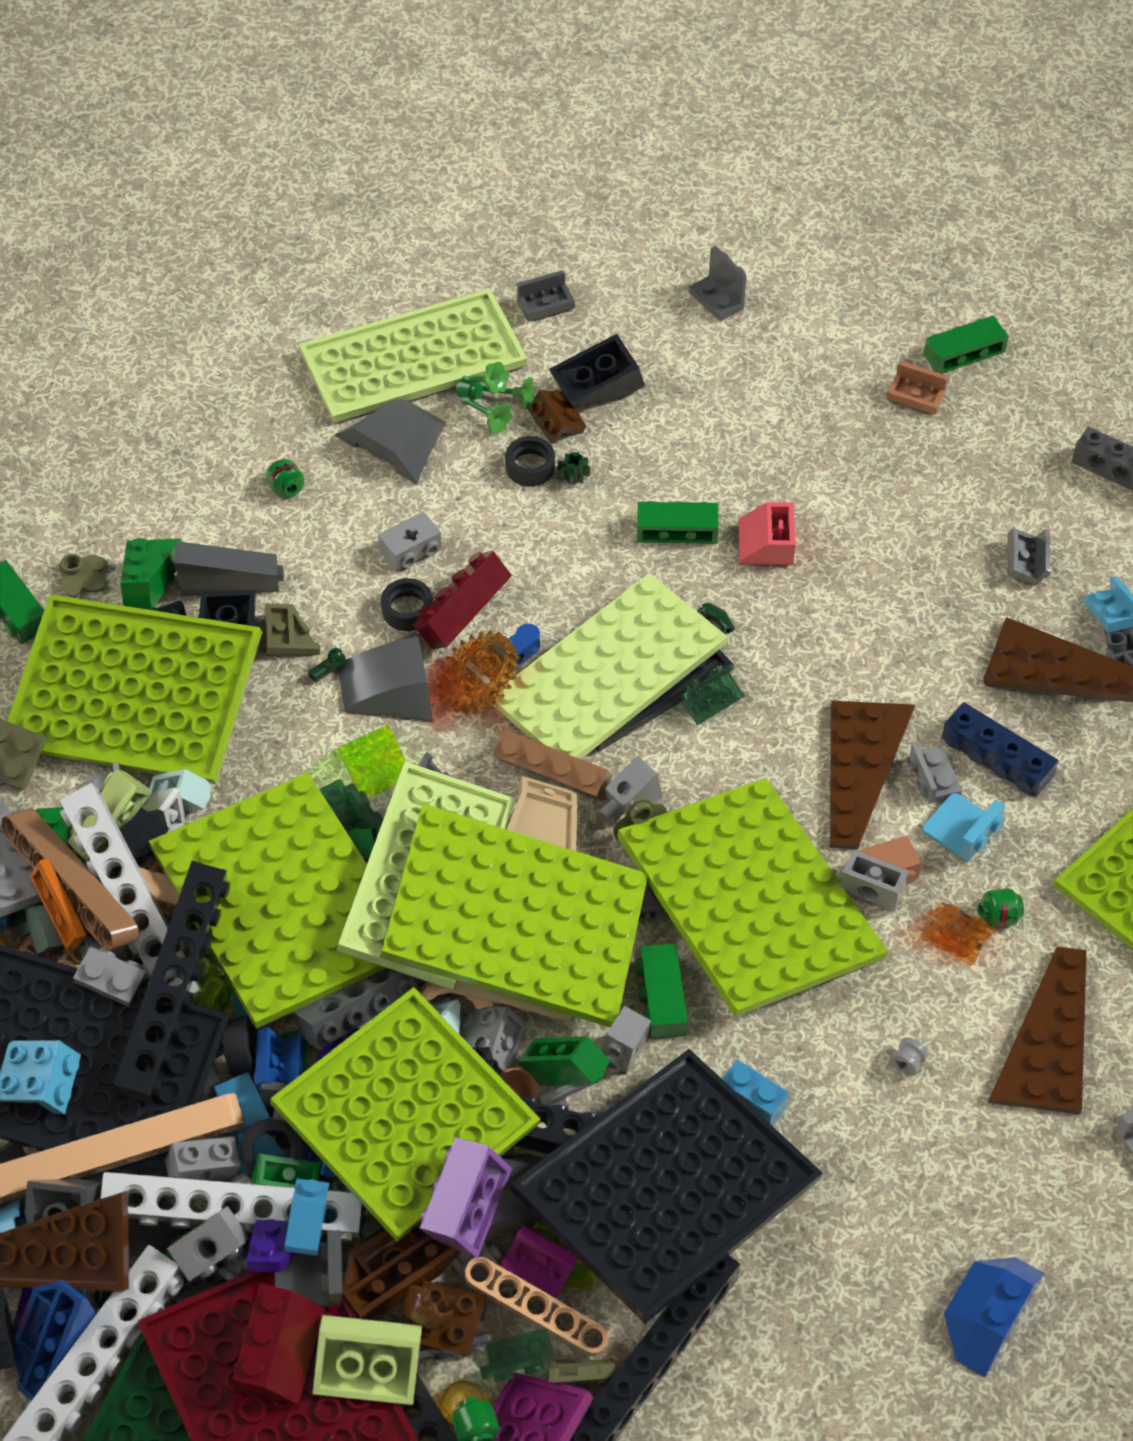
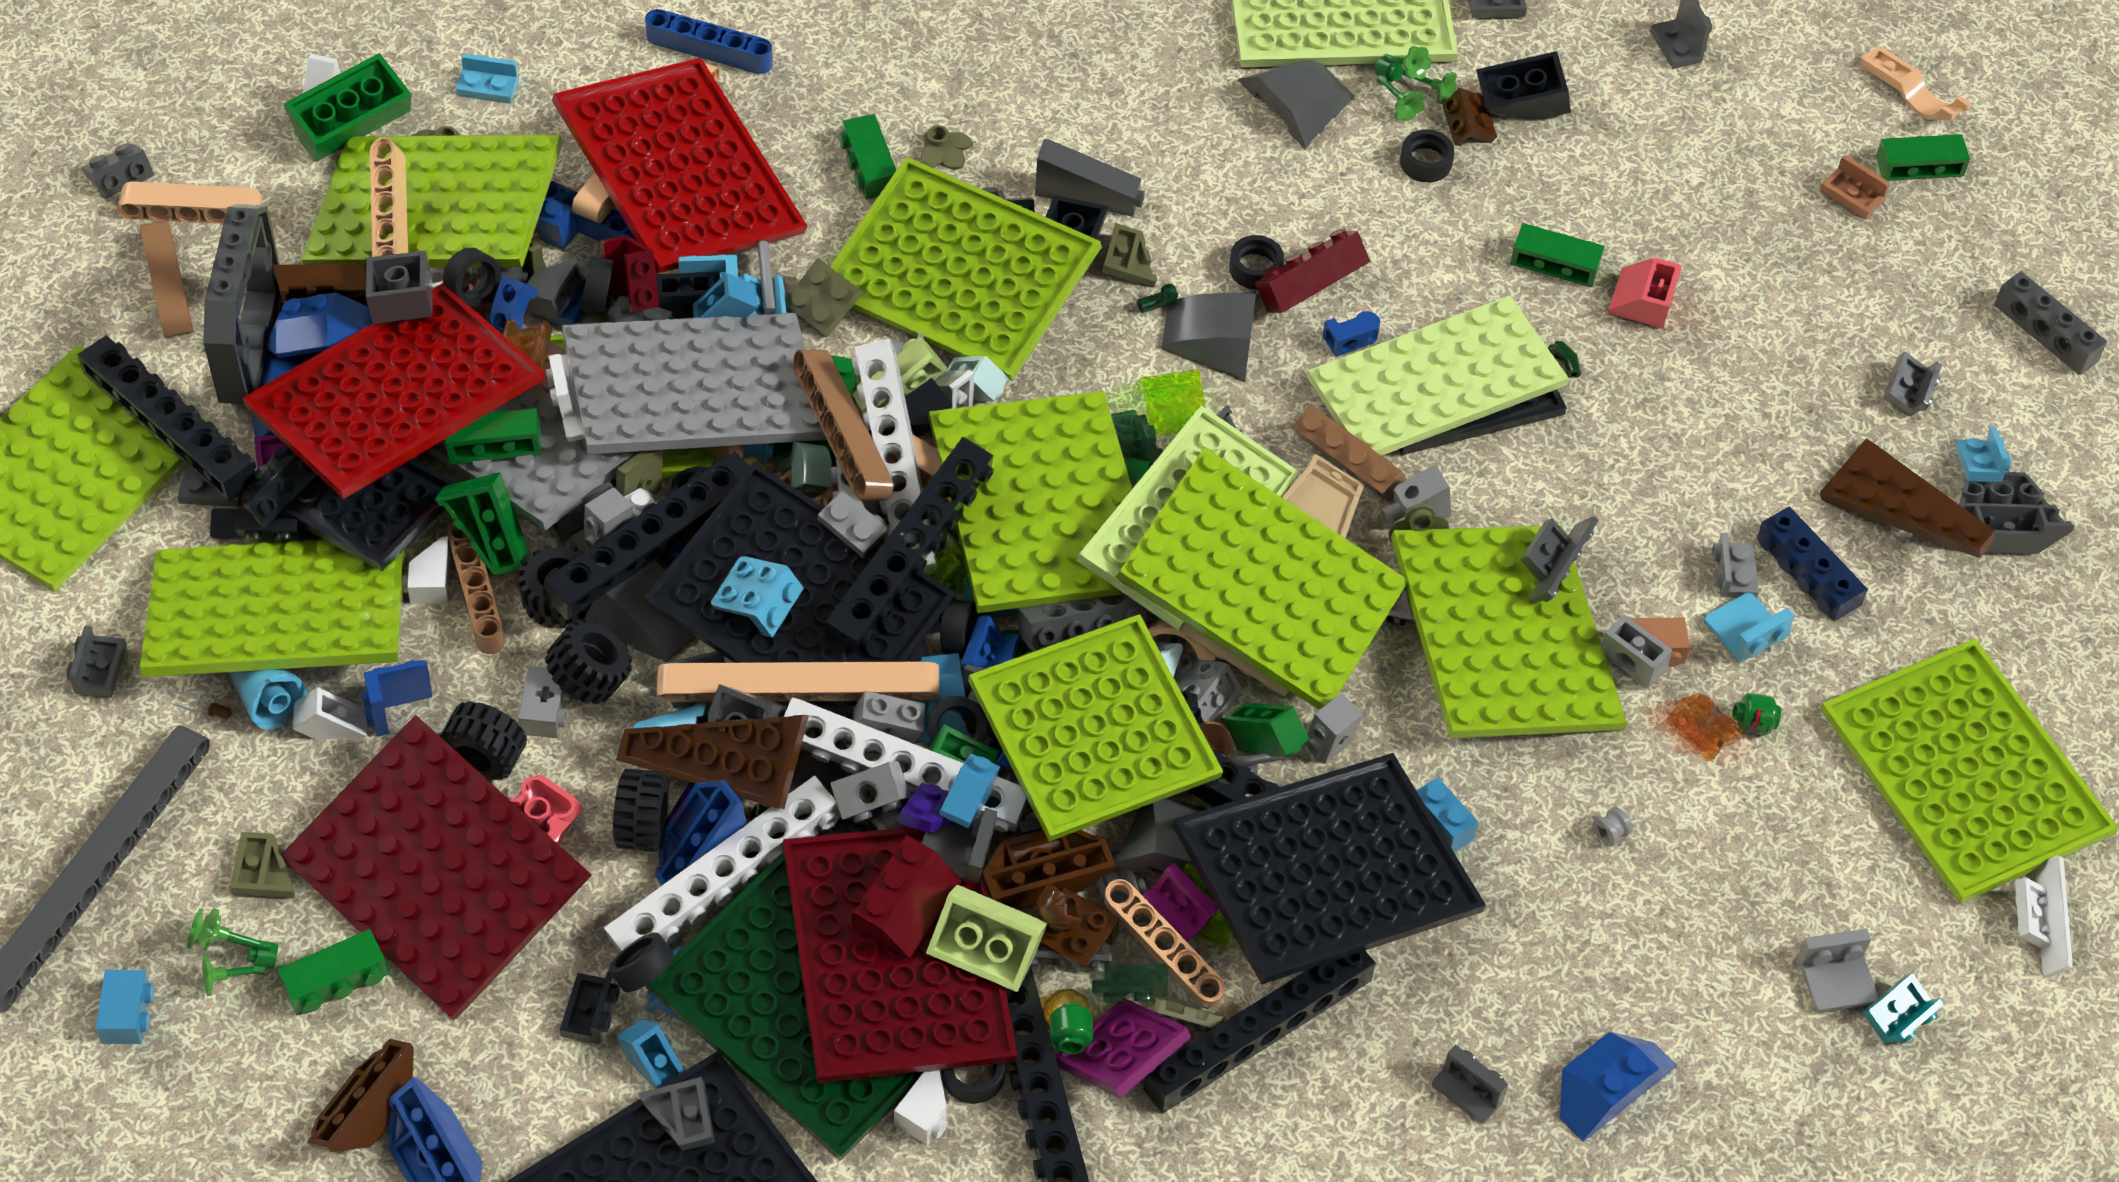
camera: 15 degrees right, 0 degrees up
(57, 905) = (824, 445): orange tile -> none
(146, 571) = (1008, 160): green wedge -> none
(285, 476) = (1174, 108): green head -> none
(410, 541) = (1279, 202): light grey brick -> none
(466, 1196) = (1127, 818): medium lavender slope -> none
(493, 657) = (1323, 332): clear orange gear -> none
(574, 467) = (1469, 174): dark green gear -> none
(662, 990) = (1386, 695): green brick -> none
(712, 695) = (1533, 430): clear green bracket -> none
(771, 809) = (1552, 555): none -> dark grey bracket
(861, 756) = (1667, 532): reddish brown wing -> none
(865, 1356) = (1470, 1084): none -> dark grey bracket
(929, 279) = (1911, 86): none -> light nougat piece
(1048, 1052) = (1757, 862): reddish brown wing -> none

